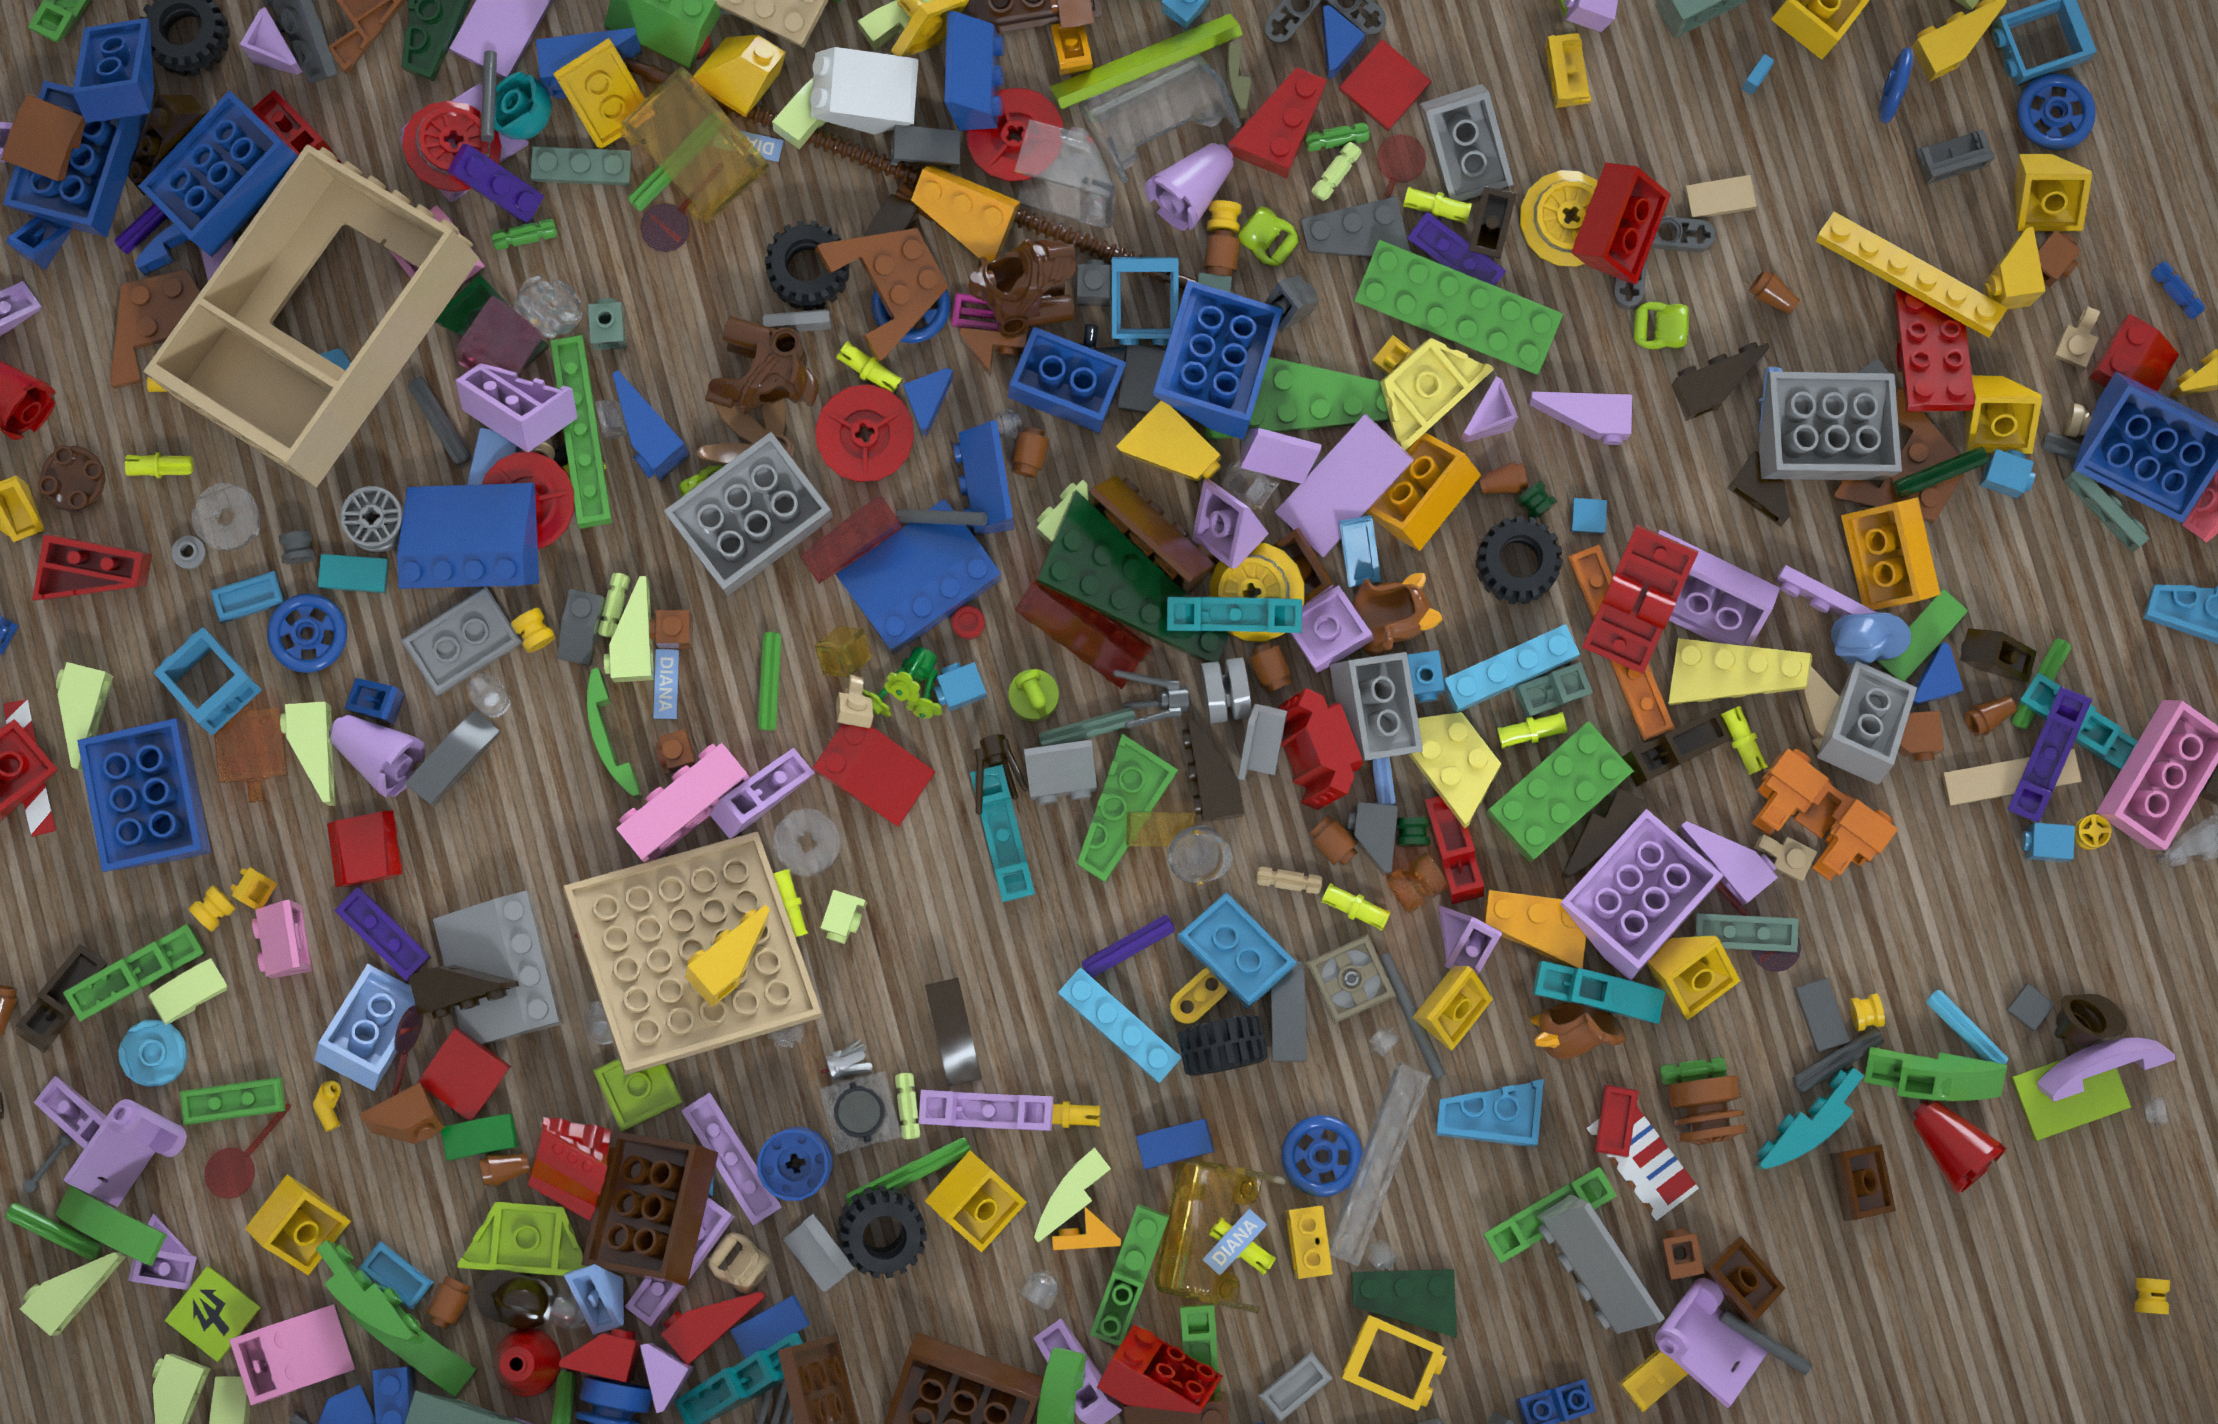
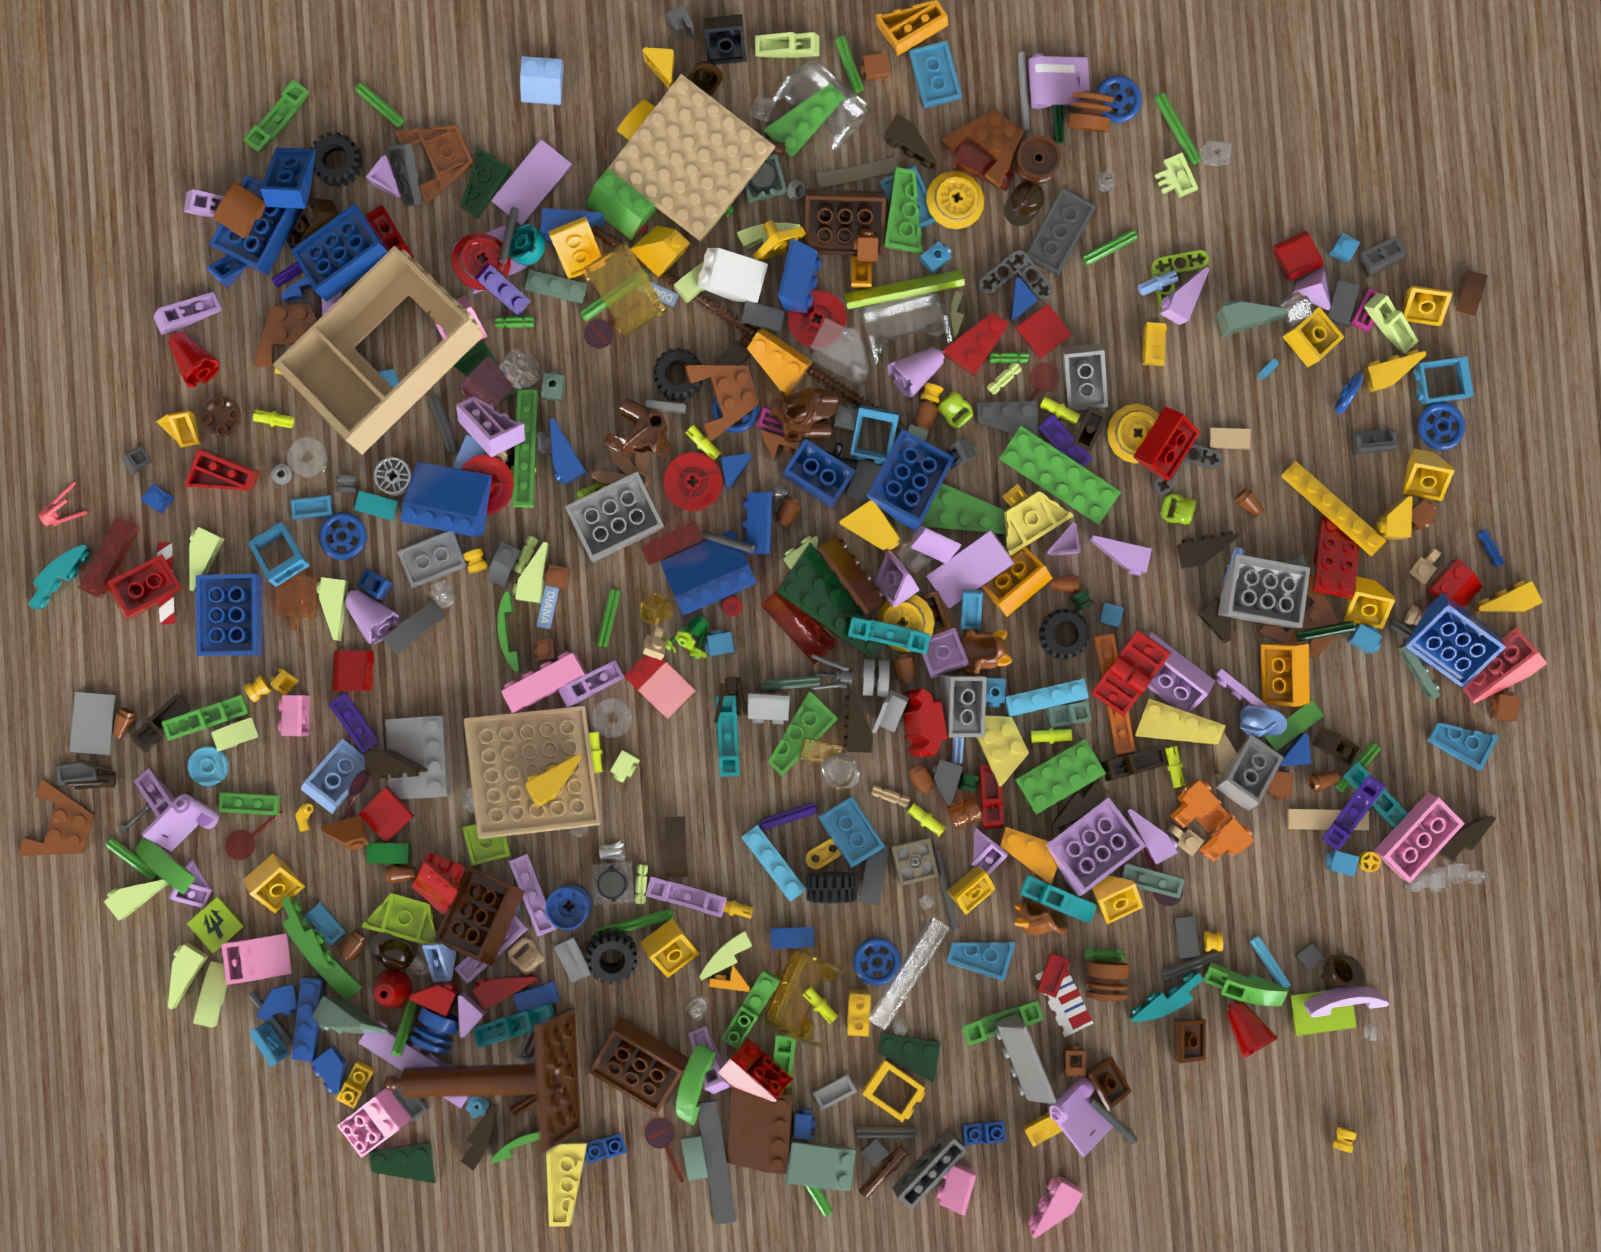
camera: 10 degrees right, 5 degrees up
(1033, 695) = (762, 657): lime piece -> none
(1234, 1242) = (815, 1002): light blue sticker -> none

